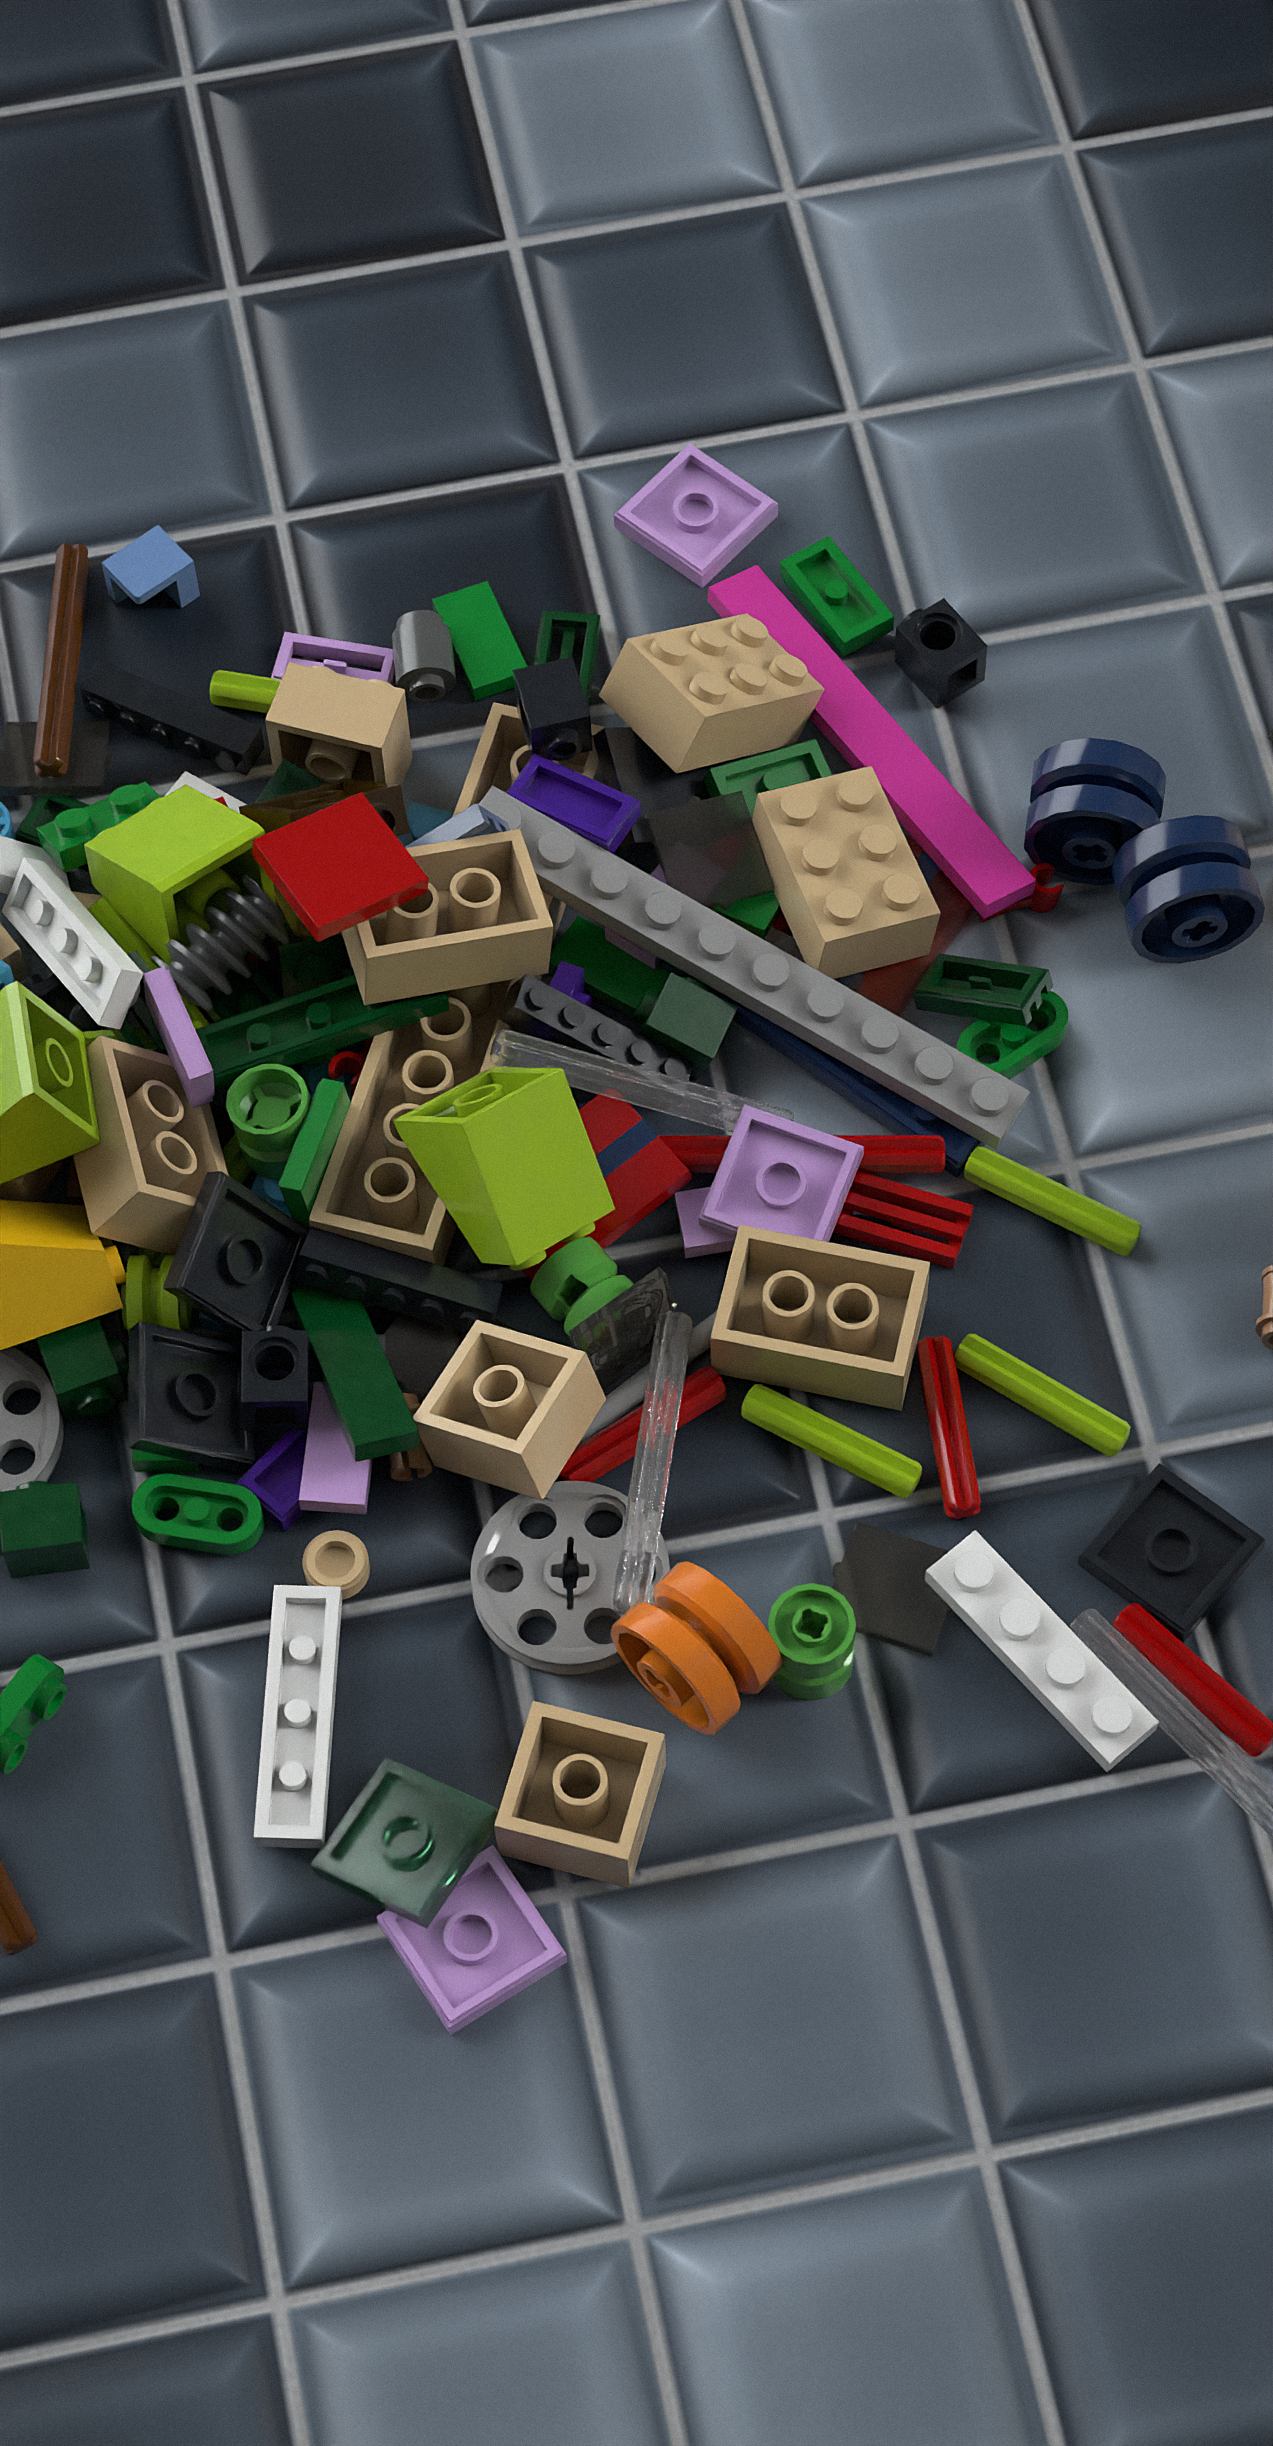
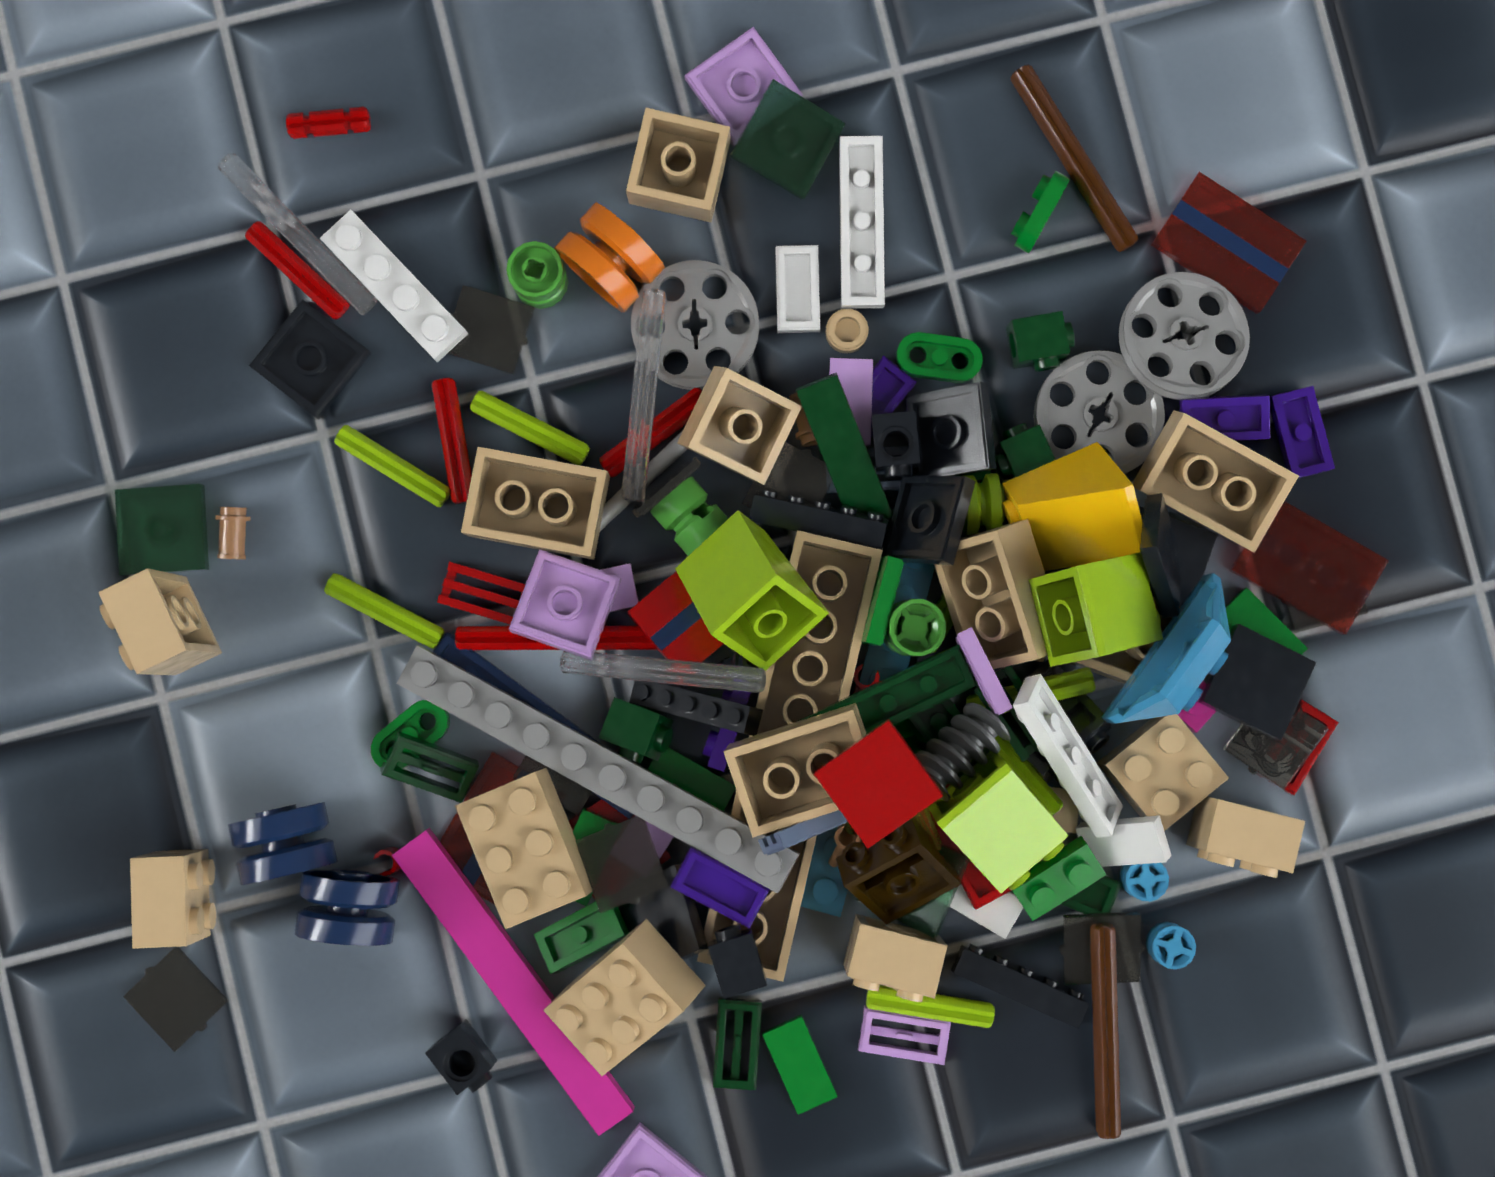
camera: 175 degrees right, 25 degrees up
(149, 566) = (1048, 1109): medium blue panel -> none
(407, 1628) = (797, 289): none -> white tile
(423, 656) = (840, 1041): dark grey brick -> none
(836, 596) = (539, 1109): green plate -> none
(1149, 1903) = (328, 122): none -> red axle

